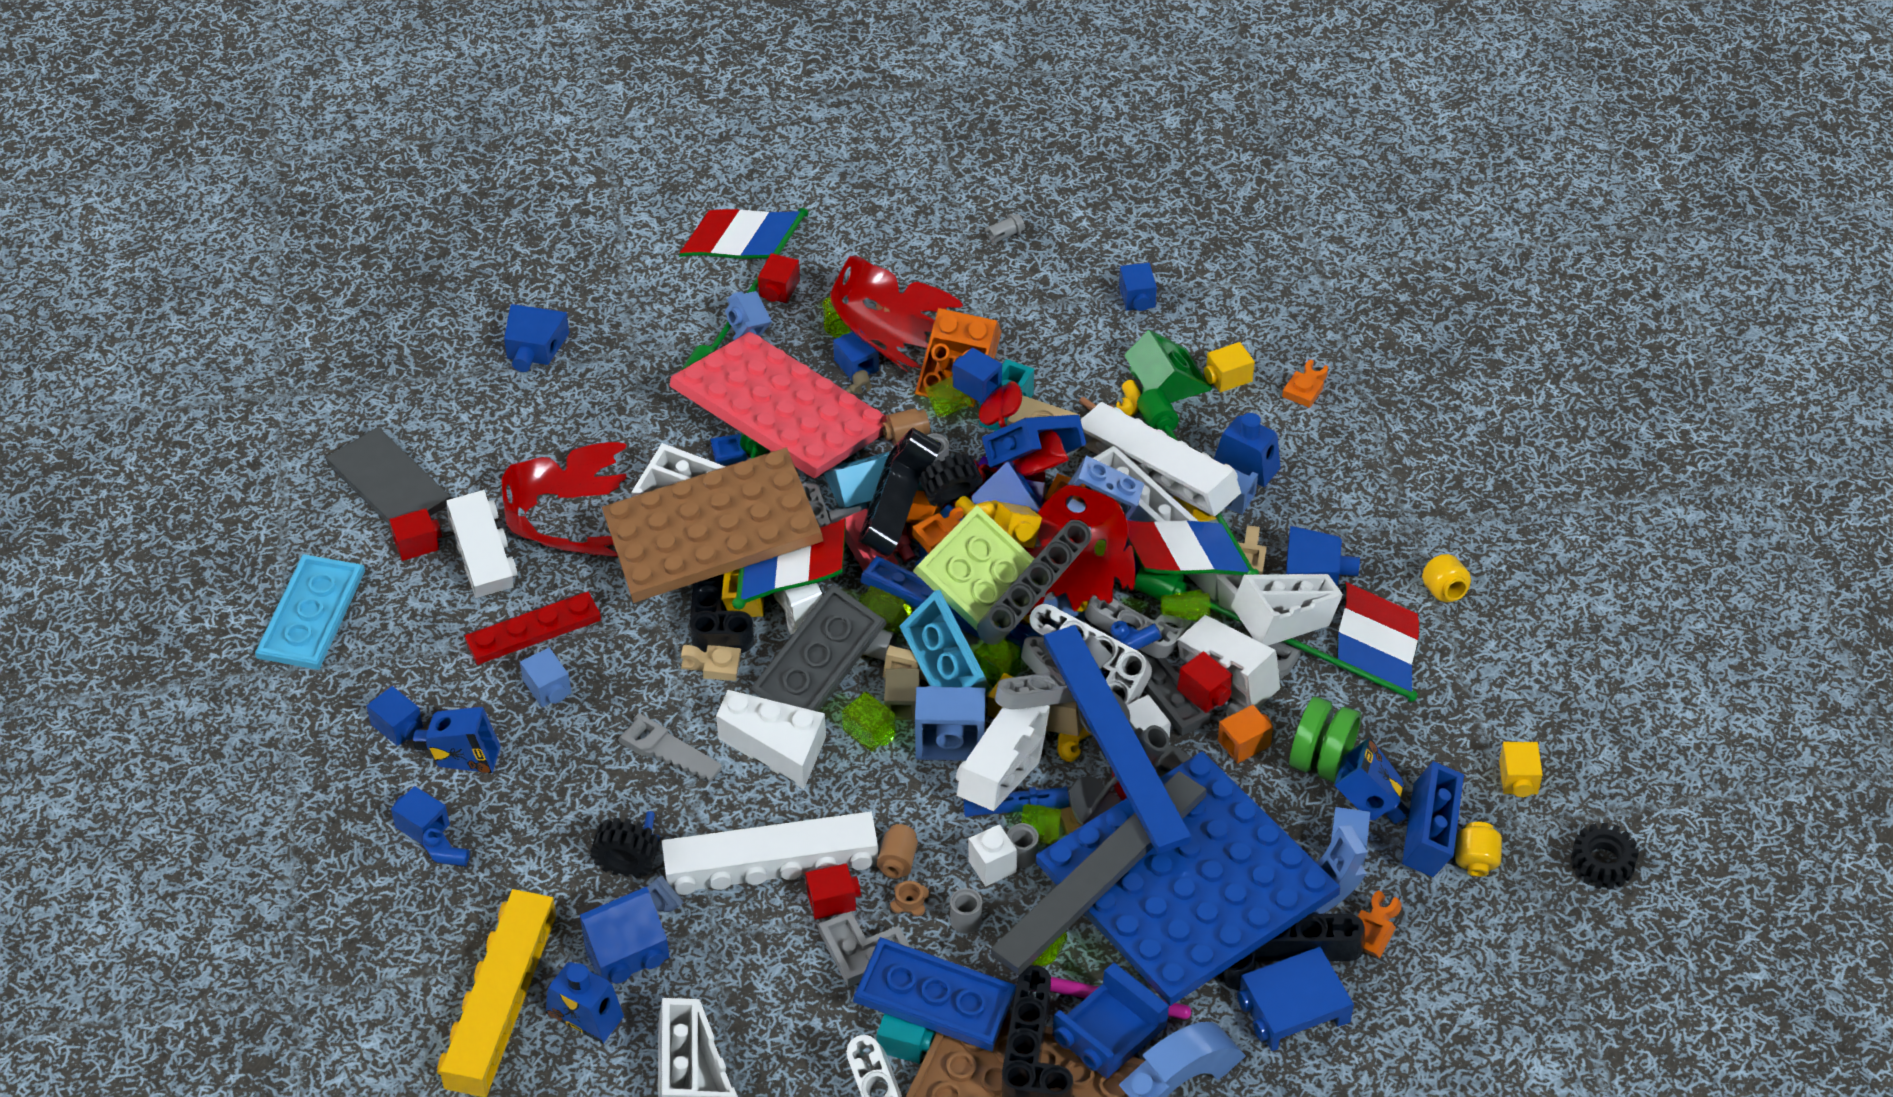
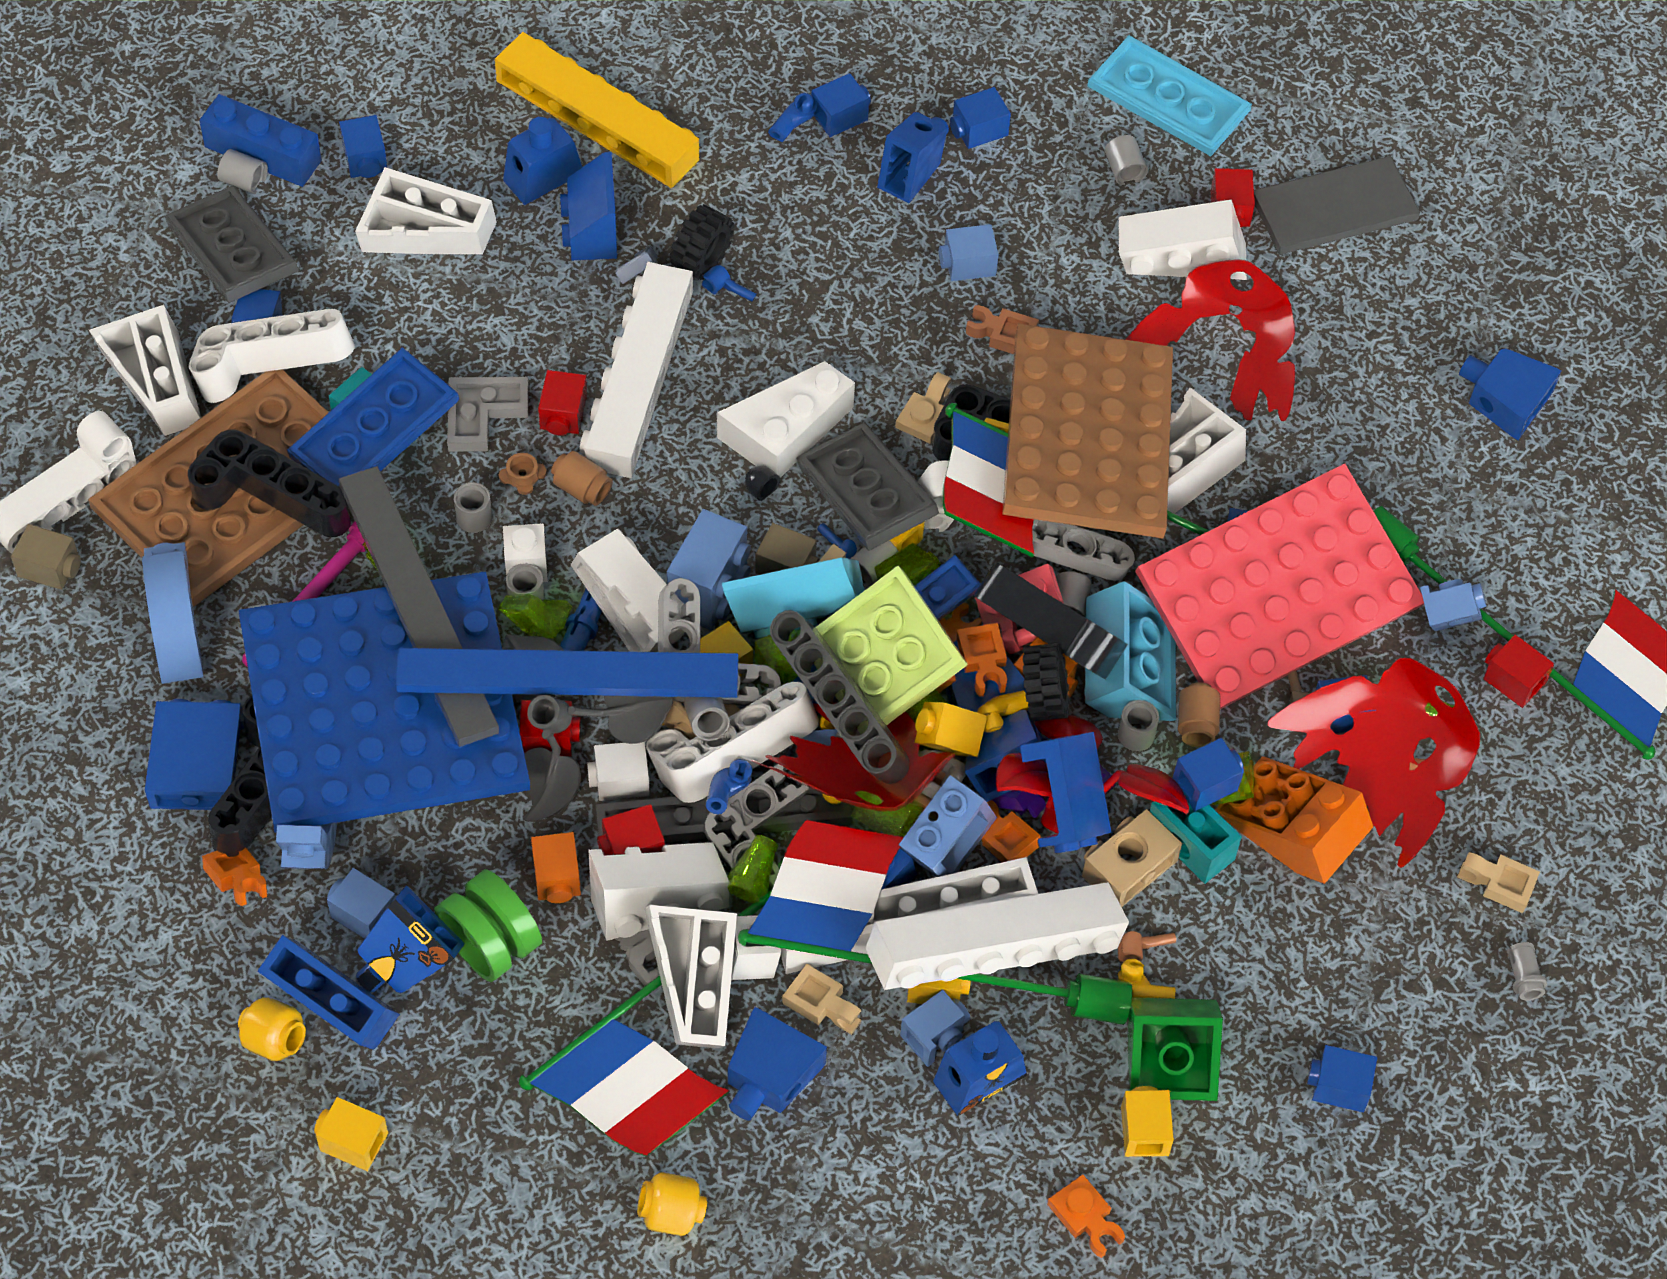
camera: 110 degrees right, 10 degrees up
(400, 611) = (1126, 159): none -> light grey beam
(532, 628) = (1054, 268): red plate -> none
(612, 634) = (999, 329): none -> nougat plate
(668, 748) = (829, 337): light grey piece -> none
(838, 737) = (761, 482): none -> black hinge
(869, 722) = (760, 508): clear neon green brick -> none
(873, 665) = (847, 545): none -> blue hand
(945, 250) = (1505, 881): none -> tan plate
(1111, 1022) = (255, 559): blue panel -> none
(1609, 840) = (181, 1138): black tyre -> none

